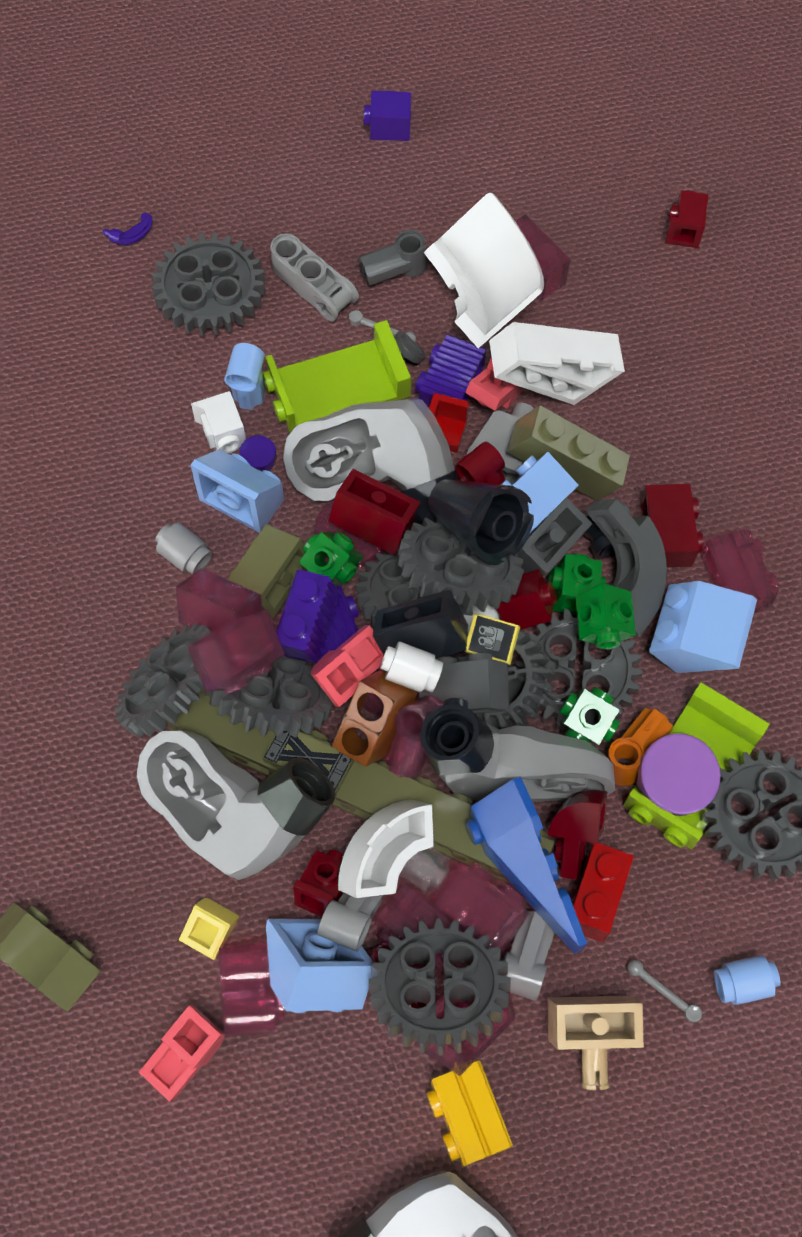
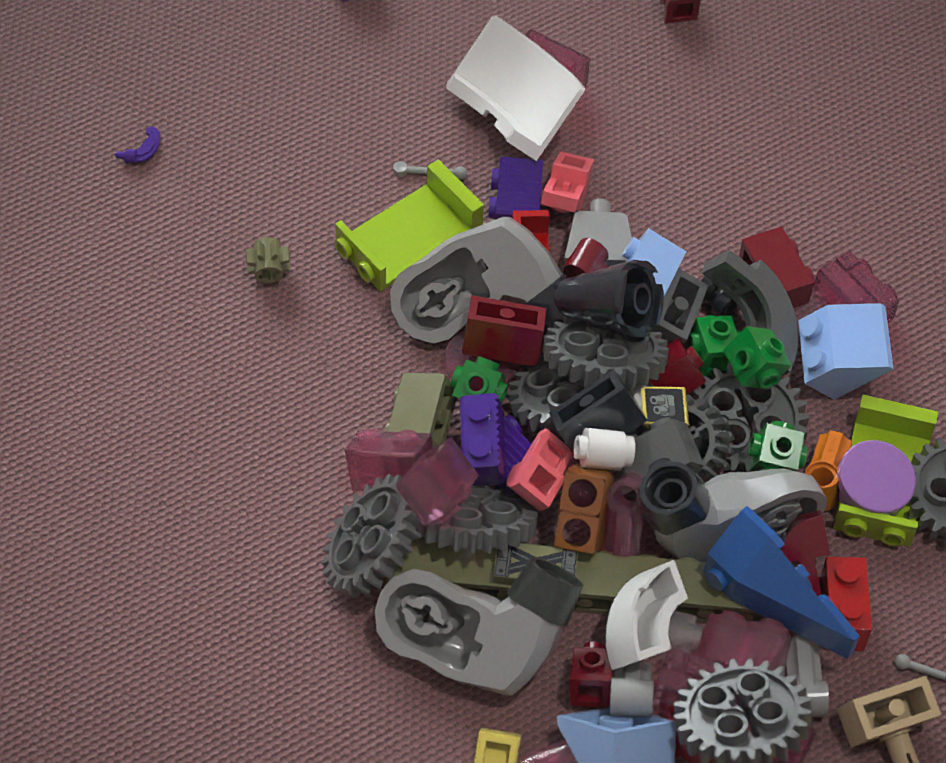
camera: 20 degrees left, 10 degrees down
(182, 548) = (326, 422): light grey brick -> none
(193, 373) = (268, 260): none -> olive gear
(201, 278) = (245, 175): dark grey gear -> none
(220, 422) = (313, 297): white window -> none
(237, 488) = (358, 353): light blue slope -> none
(246, 376) = (324, 245): light blue piece -> none
(259, 452) = (360, 318): dark purple tile -> none
(326, 292) = (344, 141): light grey piece -> none
(402, 257) = (425, 100): dark grey piece -> none
(408, 348) = (469, 181): dark grey piece -> none
(556, 359) = (617, 149): white wedge -> none
(585, 457) = (685, 227): olive brick -> none

